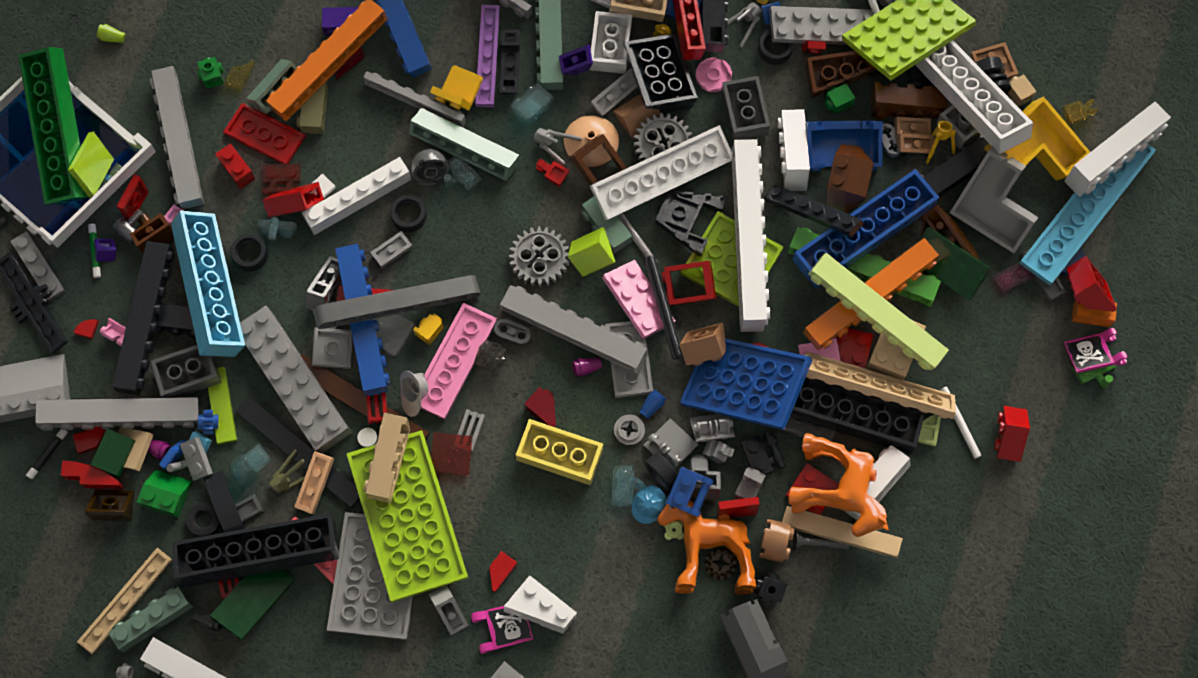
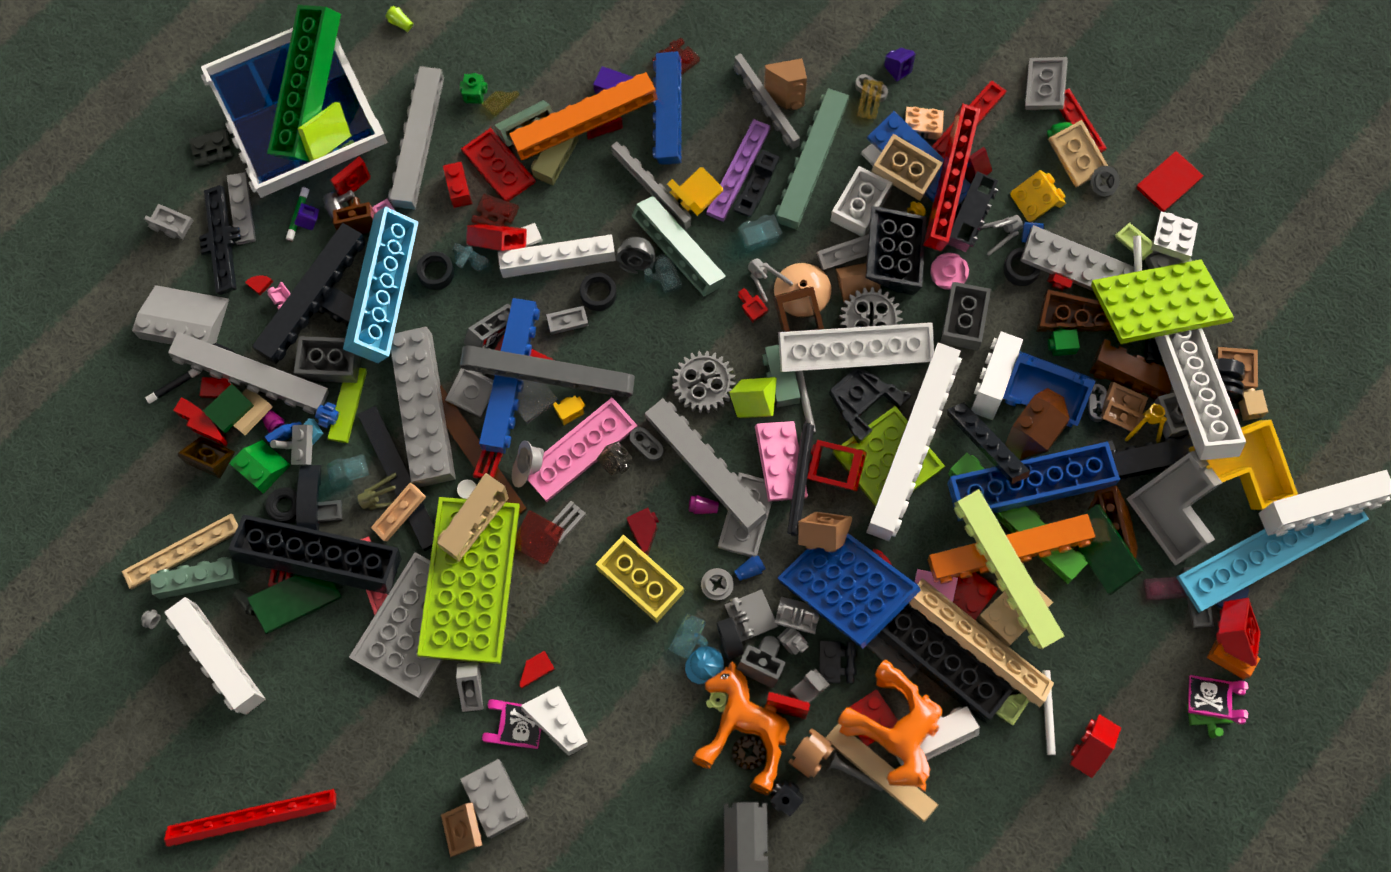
camera: 25 degrees right, 0 degrees up
(576, 61) = (818, 207): dark purple slope -> none
(683, 489) = (741, 664): blue plate -> none
(1077, 111) = (1303, 449): clear yellow plate -> none

